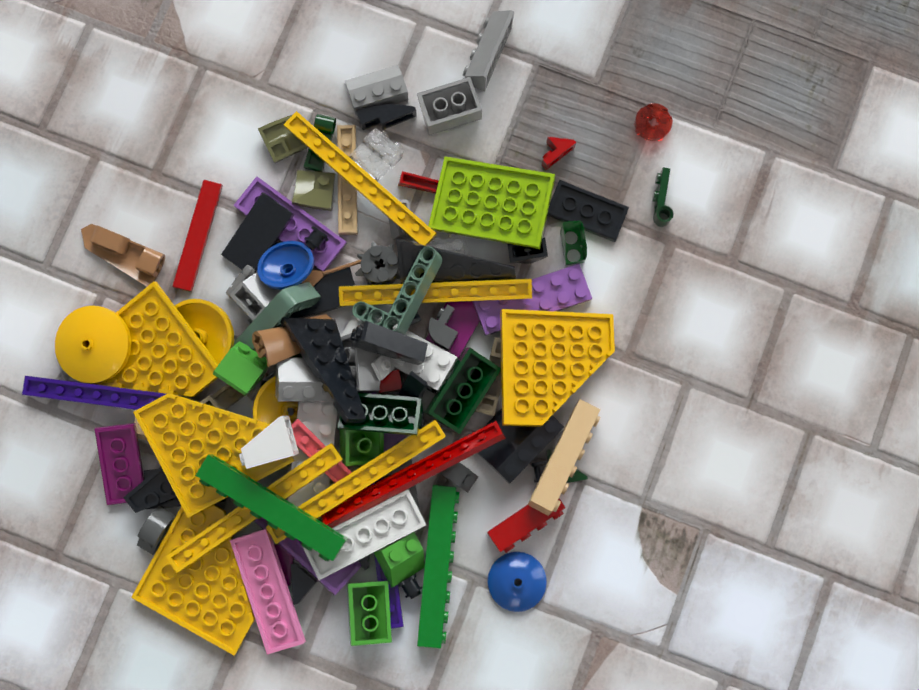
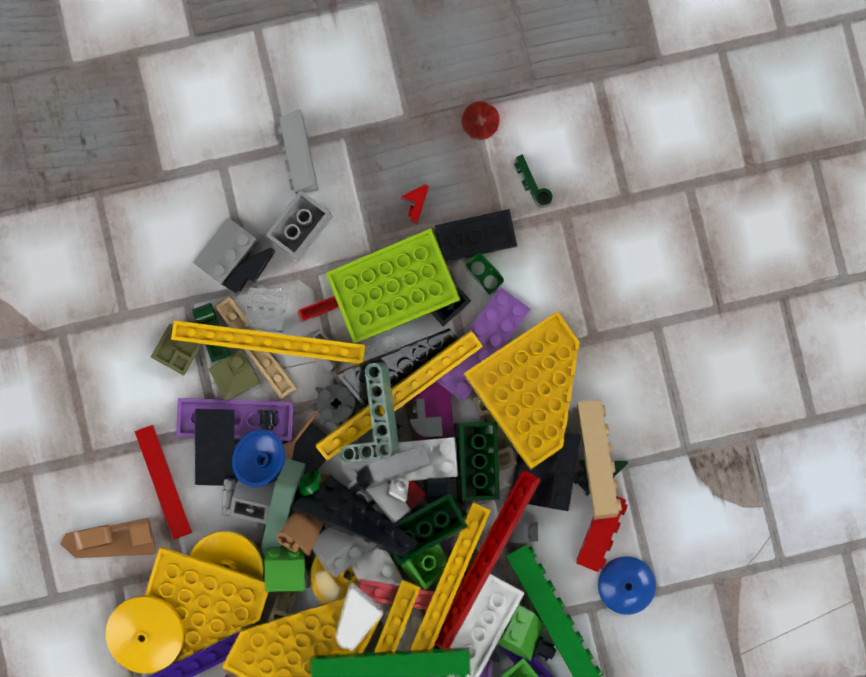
camera: 30 degrees left, 5 degrees up
(313, 313) = (310, 482): none -> green tile

